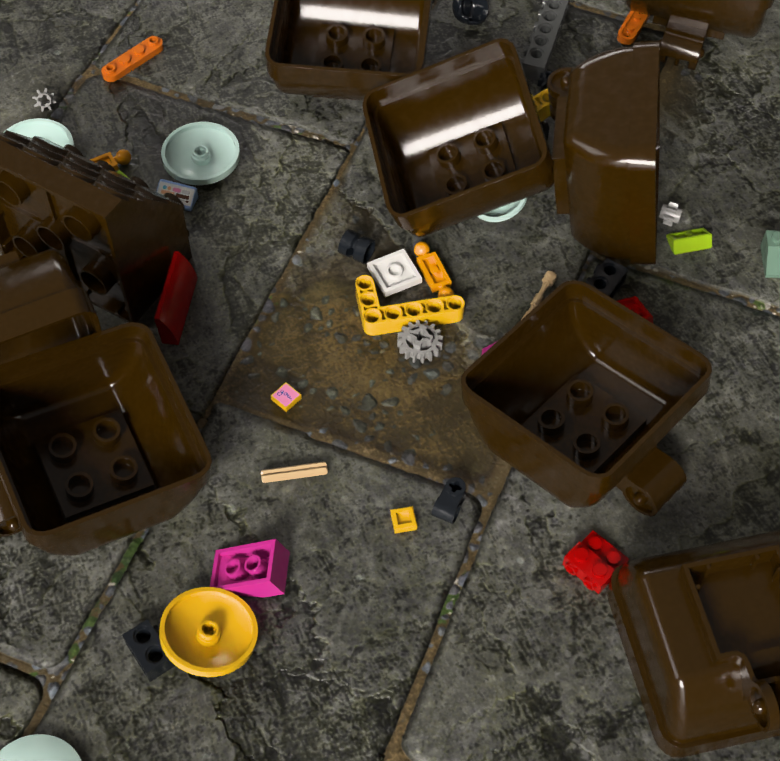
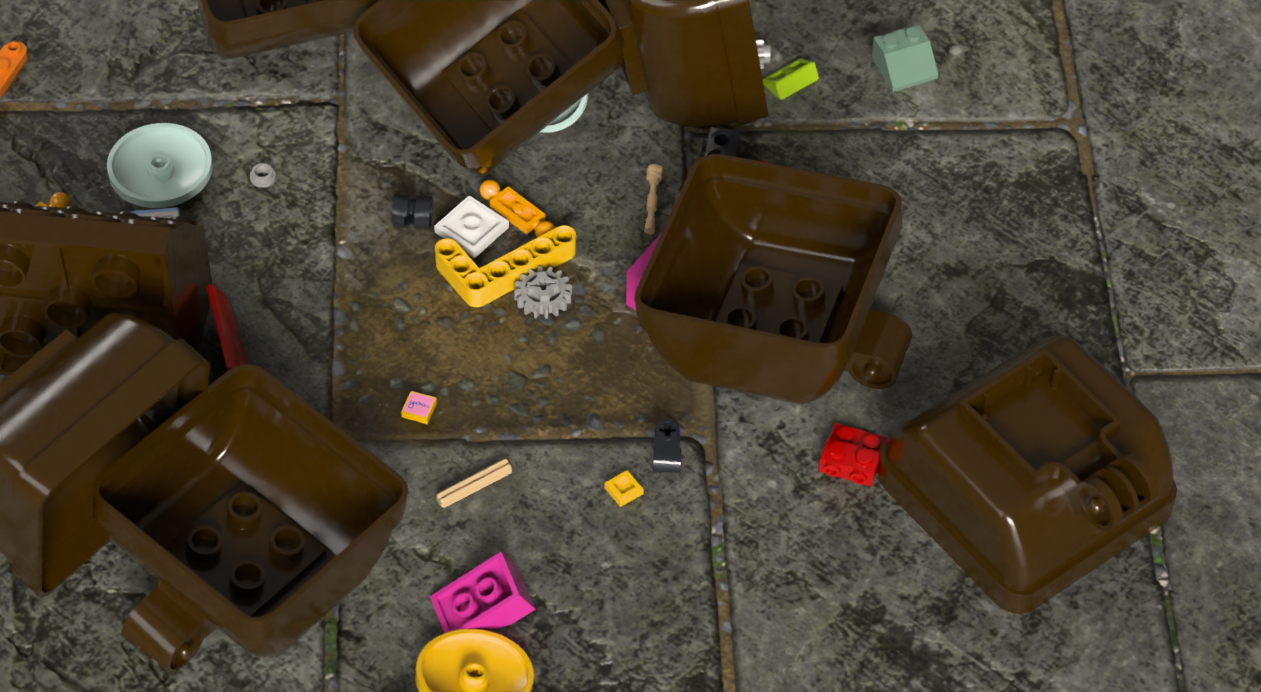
camera: 25 degrees left, 5 degrees down
(269, 184) = (262, 175): none -> light grey plate

